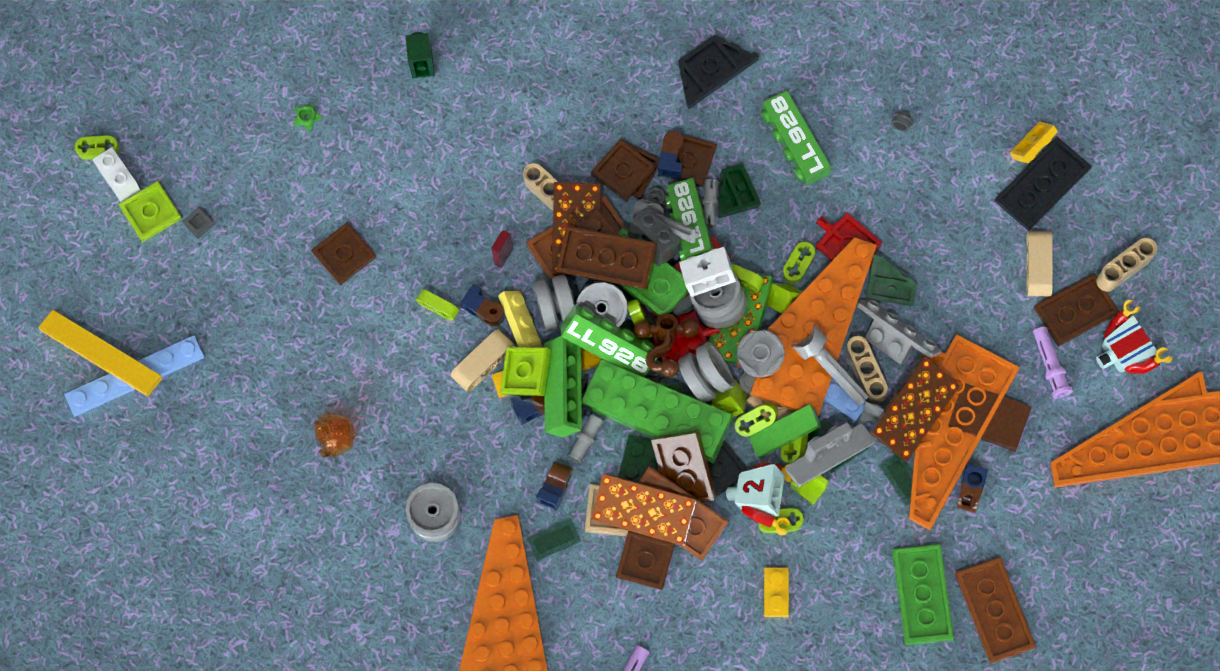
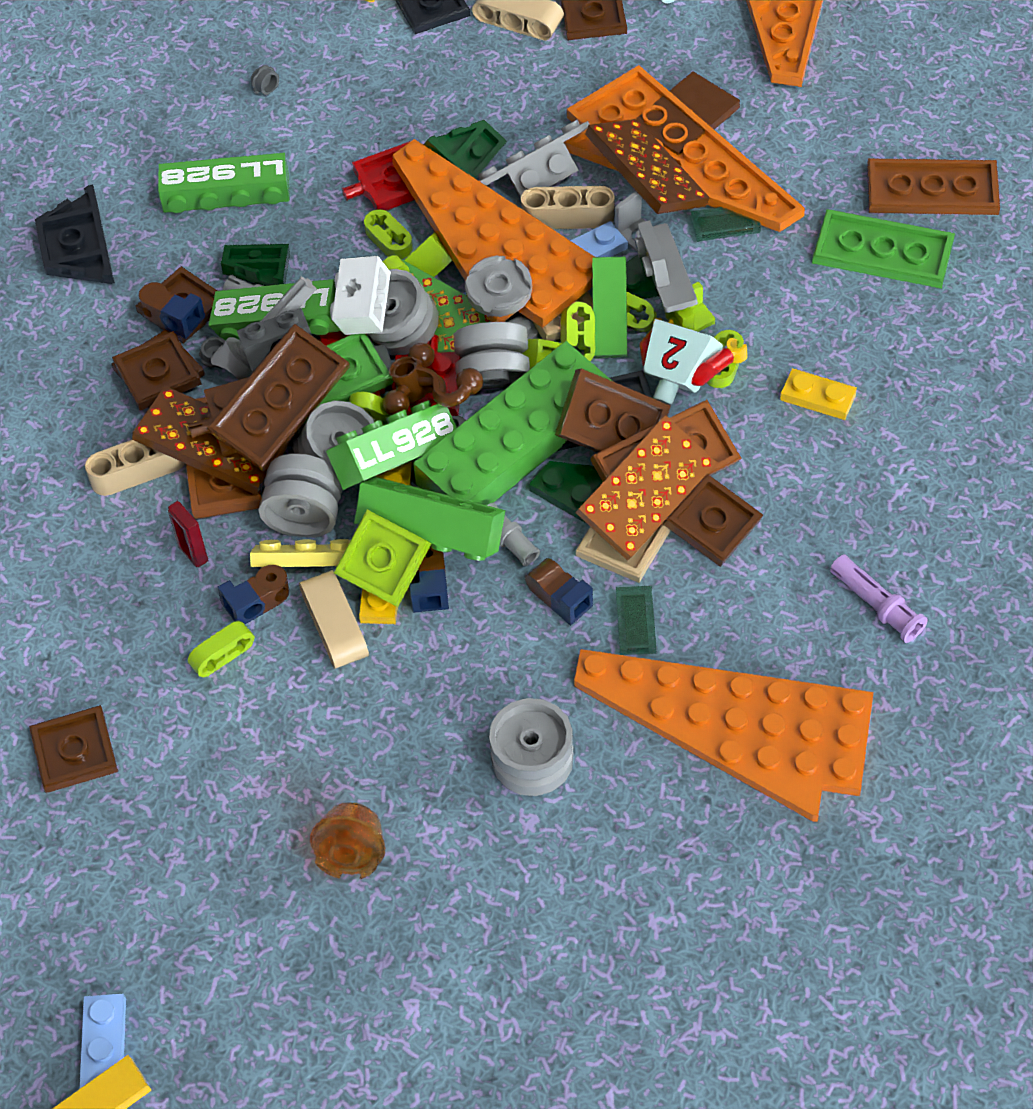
camera: 70 degrees left, 15 degrees down
(814, 347) = (520, 224): light grey piece -> none
(972, 488) = (770, 154): leg -> none
(1055, 372) = (607, 39): lavender pin -> none

